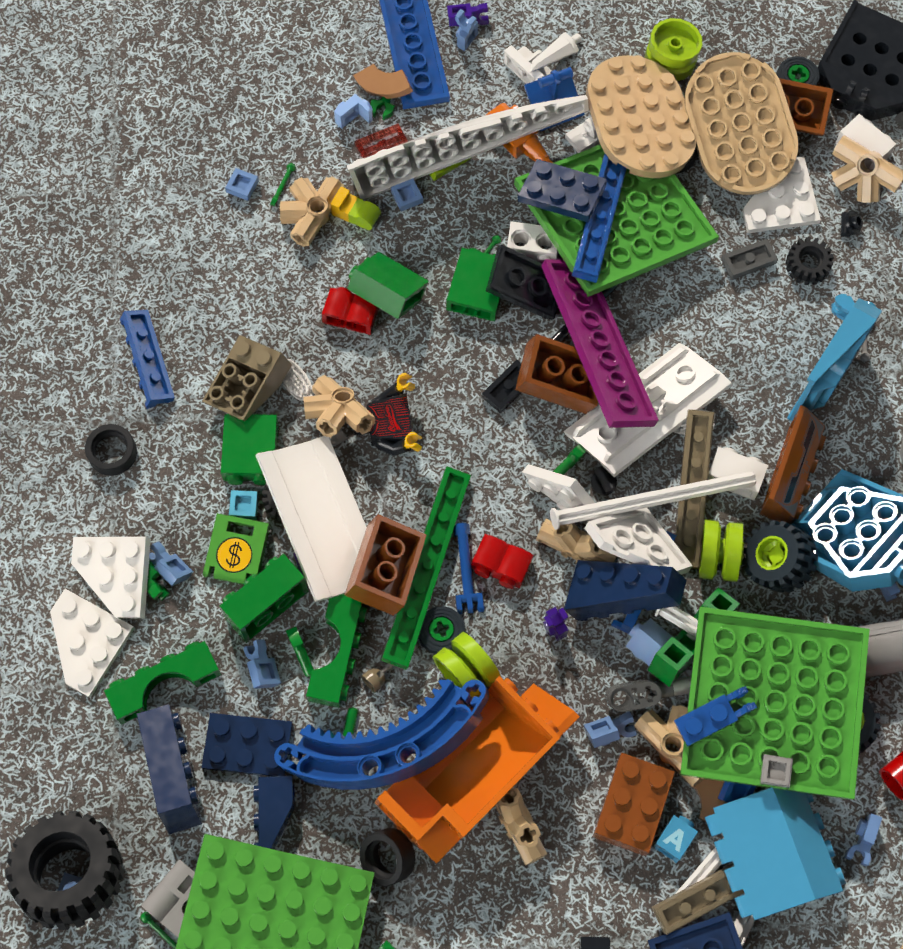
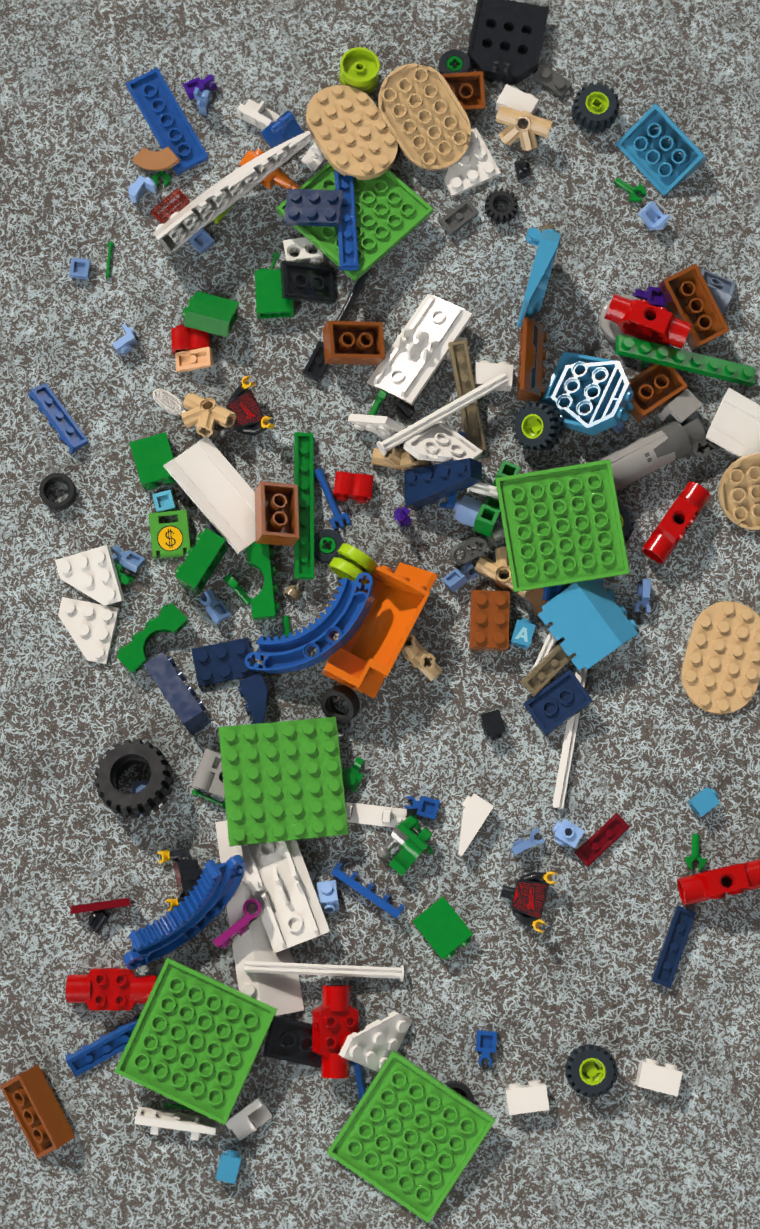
camera: 20 degrees left, 10 degrees up
(247, 378) = (135, 412): dark tan slope -> none
(266, 289) = (126, 342): none -> light blue bracket
(302, 210) = (132, 267): tan piece -> none
(346, 335) = (194, 359): none -> light nougat hinge
(354, 209) = (168, 264): leg -> none
(559, 49) = (276, 95): white bar -> none
(601, 350) = (375, 317): magenta plate -> none
(712, 717) = (524, 549): blue hinge -> none
(721, 550) = (502, 433): lime wheel -> none
(776, 771) = (575, 571): light grey tile -> none

